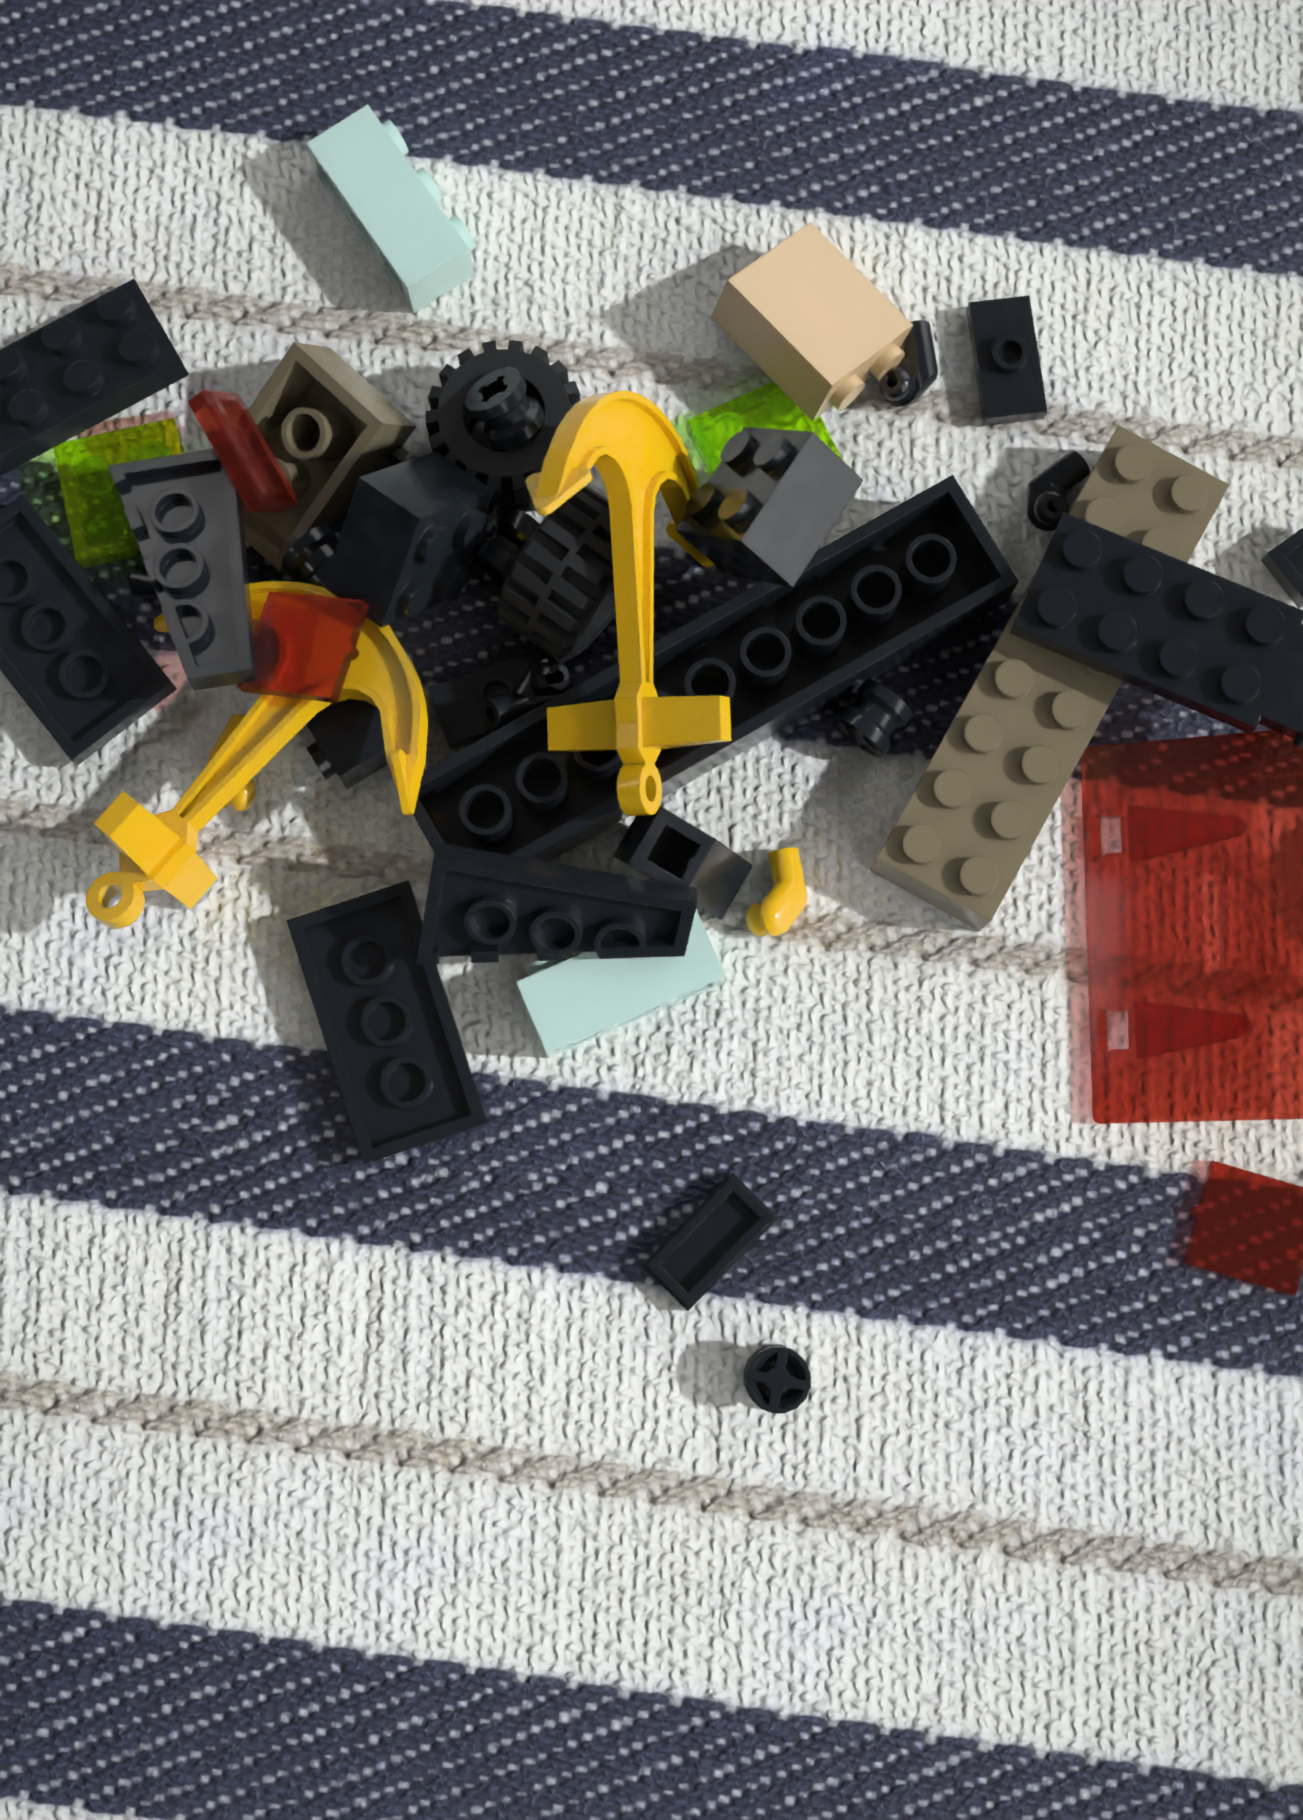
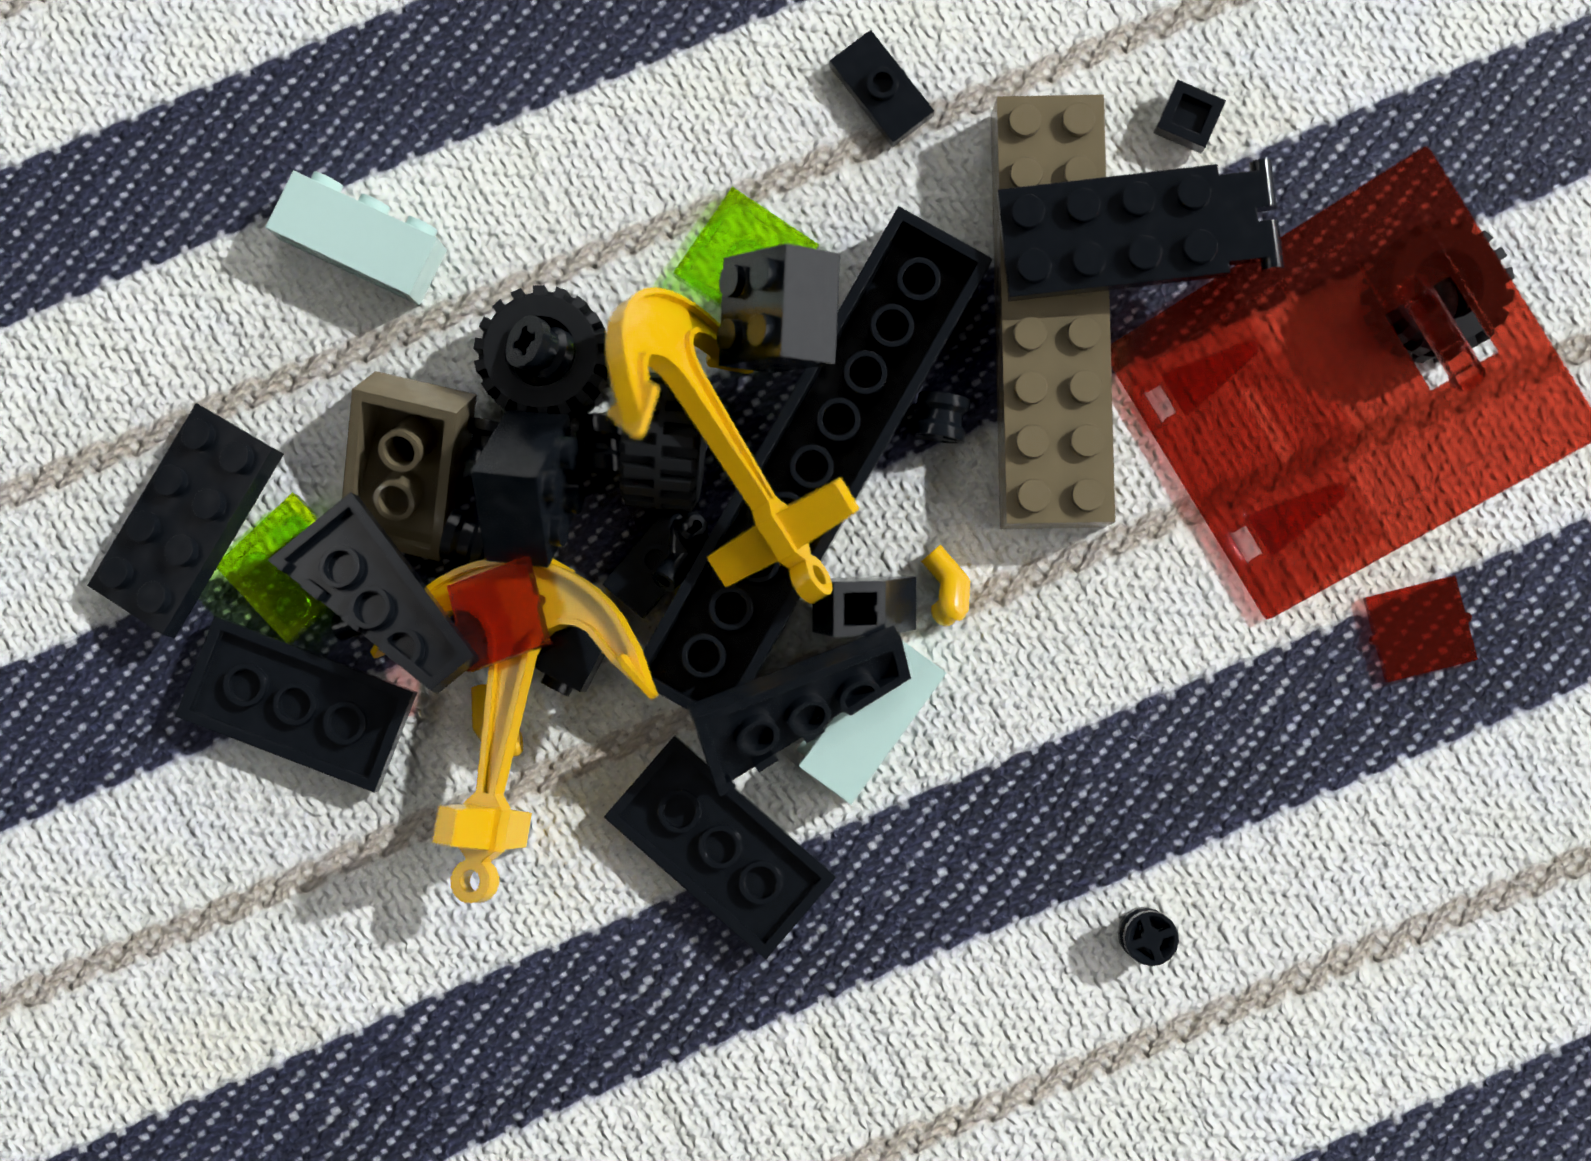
camera: 25 degrees left, 5 degrees up
(243, 451) = (362, 492): clear red tile -> none
(710, 1241) = (1043, 866): black tile -> none
(812, 322) = (725, 145): tan brick -> none
(916, 371) = (820, 134): black arm -> none
(1048, 490) = (969, 172): black arm -> none

